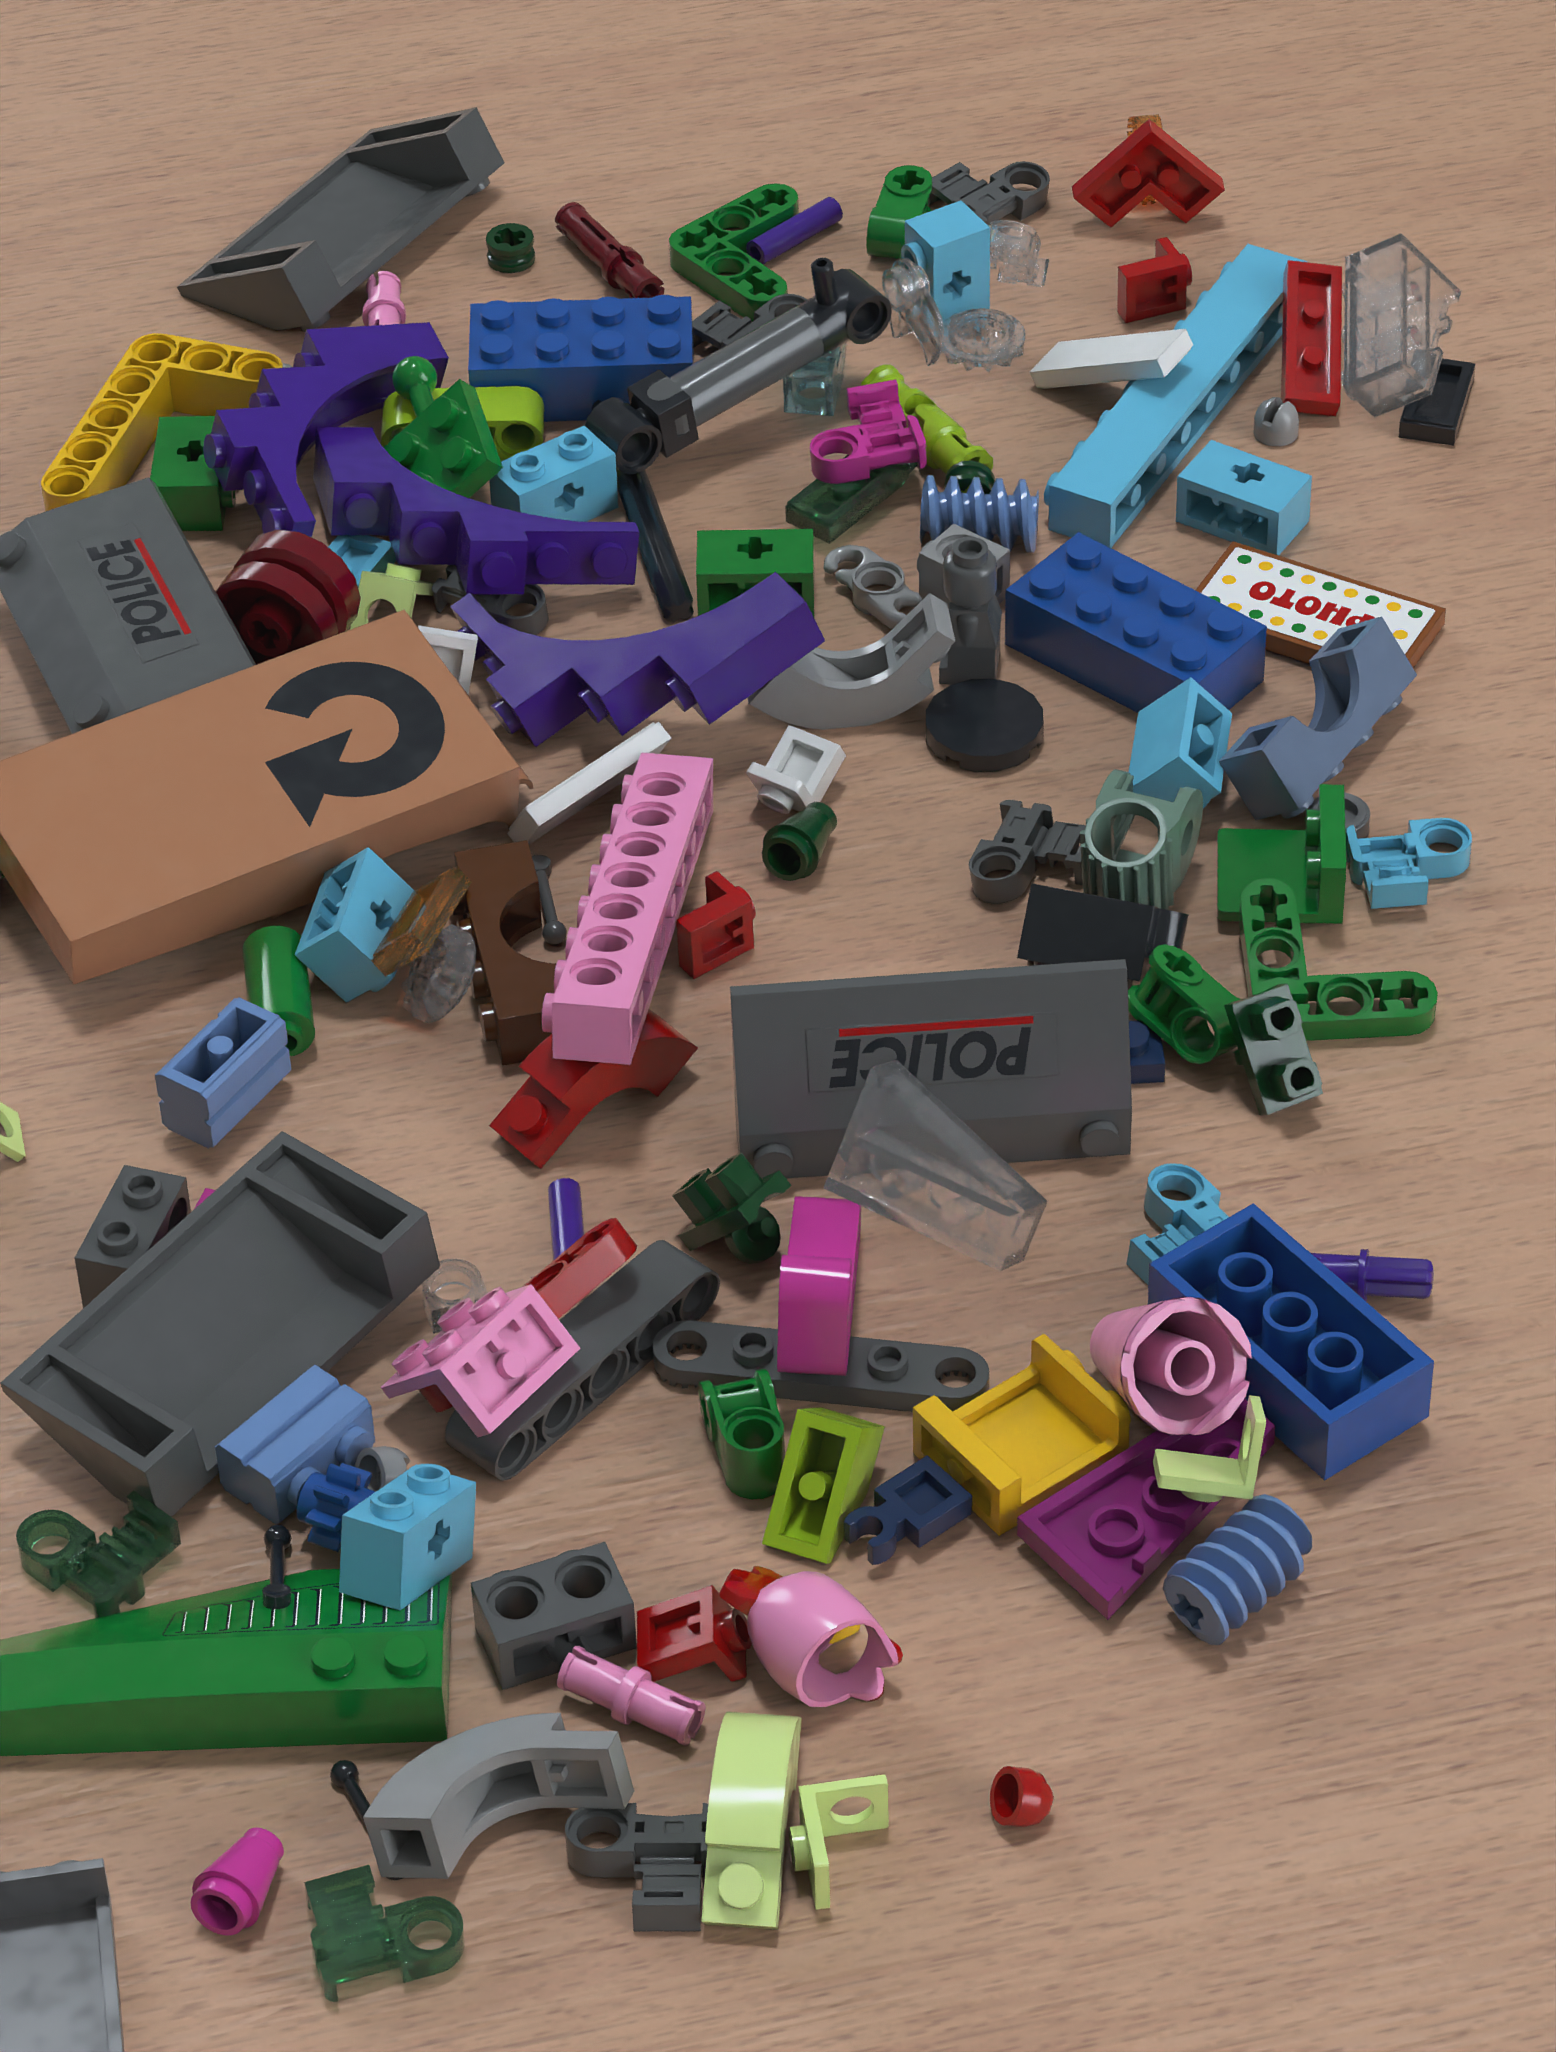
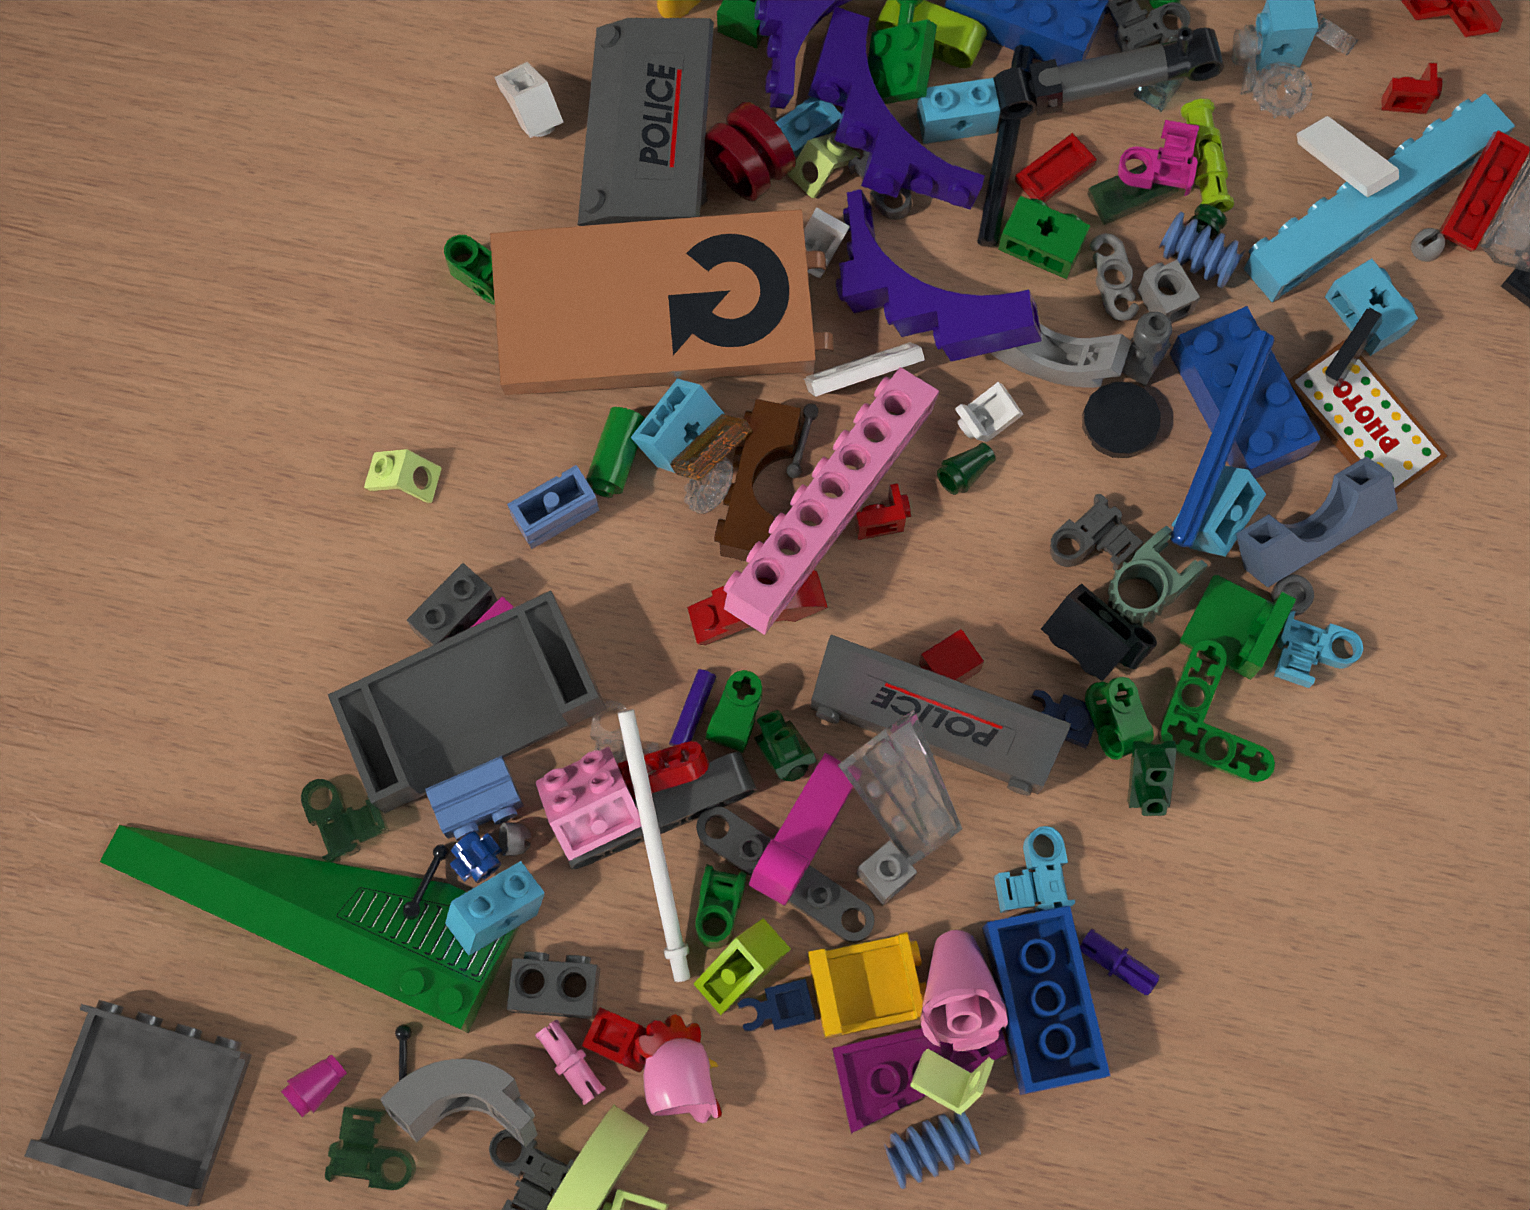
camera: 25 degrees right, 30 degrees up
(637, 1191) = (735, 717): none -> green piece
(711, 1502) = (675, 949): none -> white bar
(729, 503) = (1055, 169): none -> red tile
(969, 1295) = (886, 872): none -> light grey brick
(1135, 659) = (1222, 439): none -> blue axle
(1246, 524) = (1353, 347): none -> black tile

